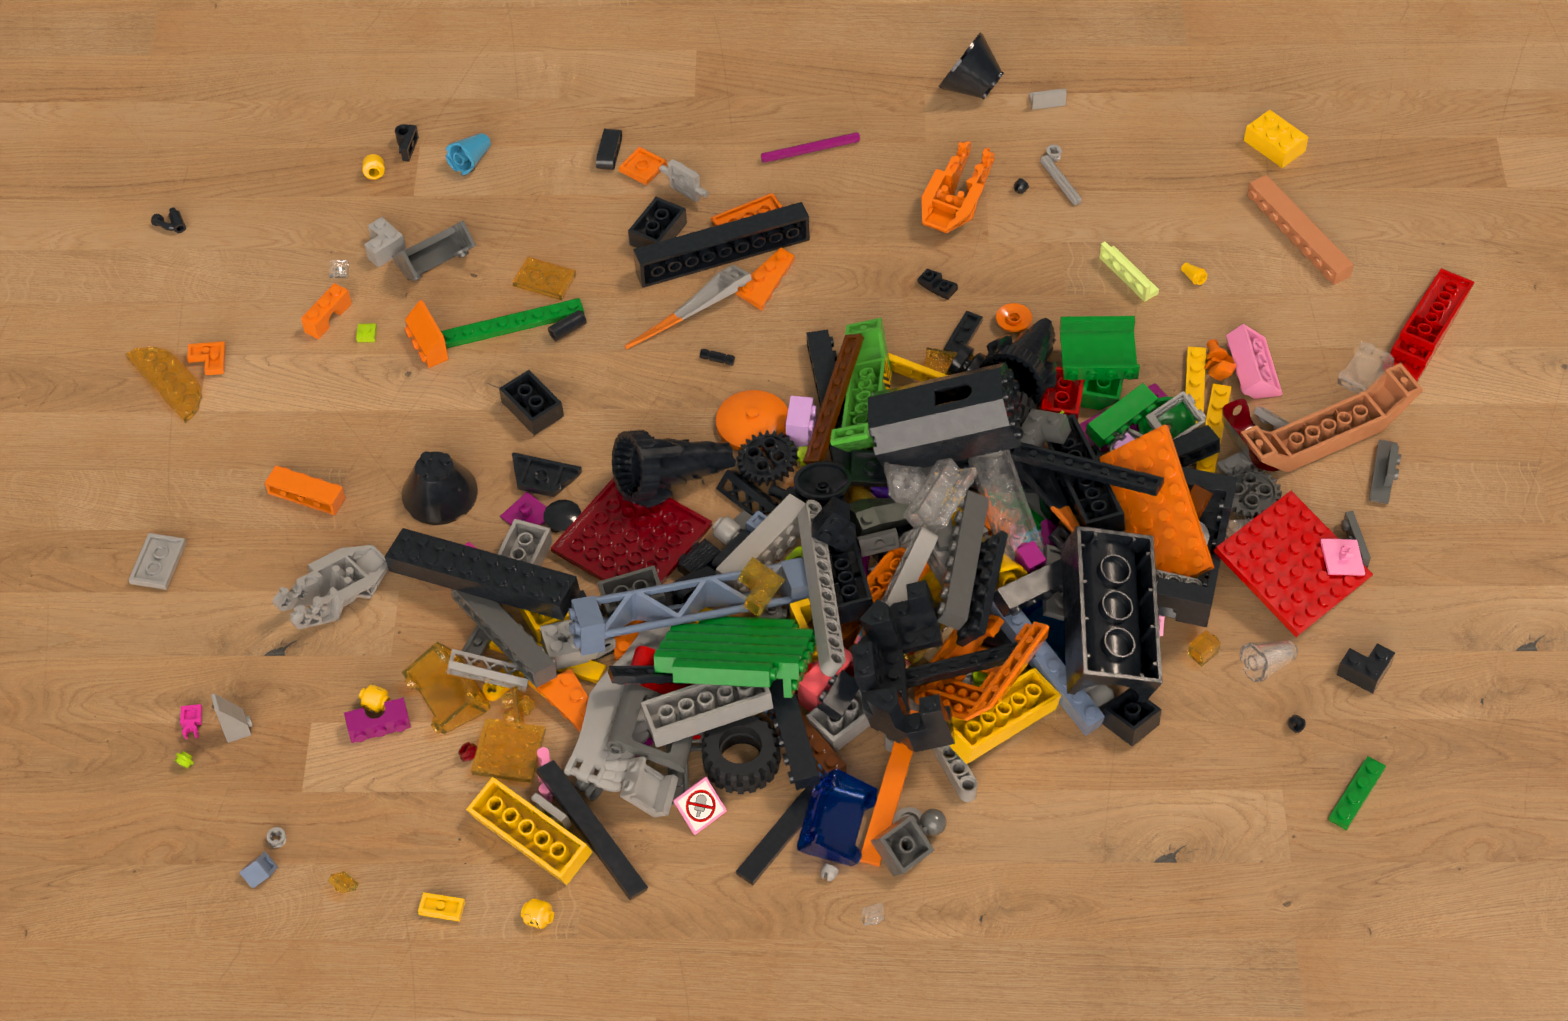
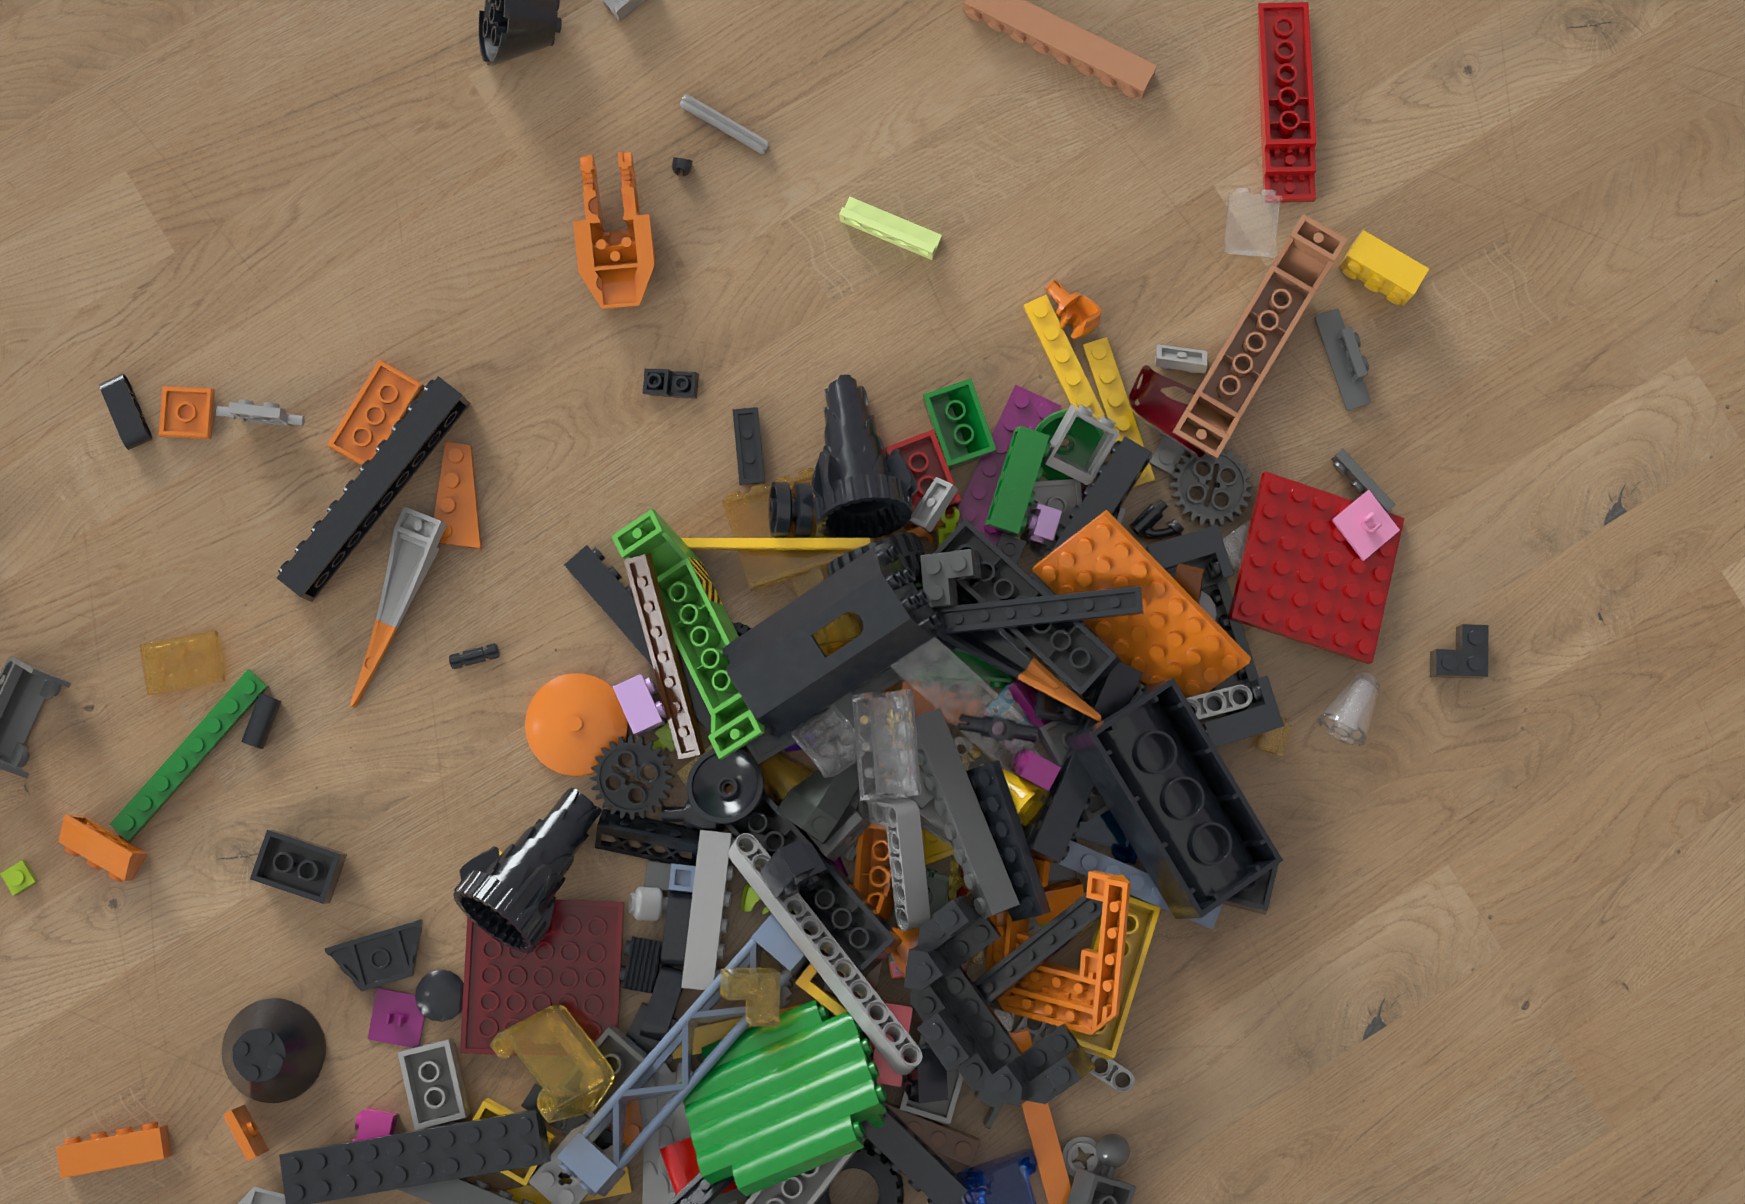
camera: 30 degrees left, 30 degrees up
(390, 516) = (245, 1132): none -> orange plate
(613, 560) = (560, 1060): none -> clear yellow windscreen
(657, 223) = (273, 506): black brick -> none
(810, 147) = (379, 255): magenta axle -> none
(868, 752) = (993, 1111): none -> pearl dark grey panel
(1014, 317) = (790, 373): orange dish -> none
(1014, 522) = (1011, 728): none -> black pin
(1054, 149) = (697, 80): light grey bush -> none
(1064, 401) = (933, 504): none -> light grey plate
(1098, 348) = (933, 392): green panel -> none
(1194, 273) = (970, 184): yellow cone -> none
(1253, 363) = (1115, 286): bright pink slope -> none
(1300, 723) = (1422, 774): black hinge -> none
(1357, 793) = (1530, 822): green plate -> none
(1441, 430) = (1383, 268): none -> yellow brick

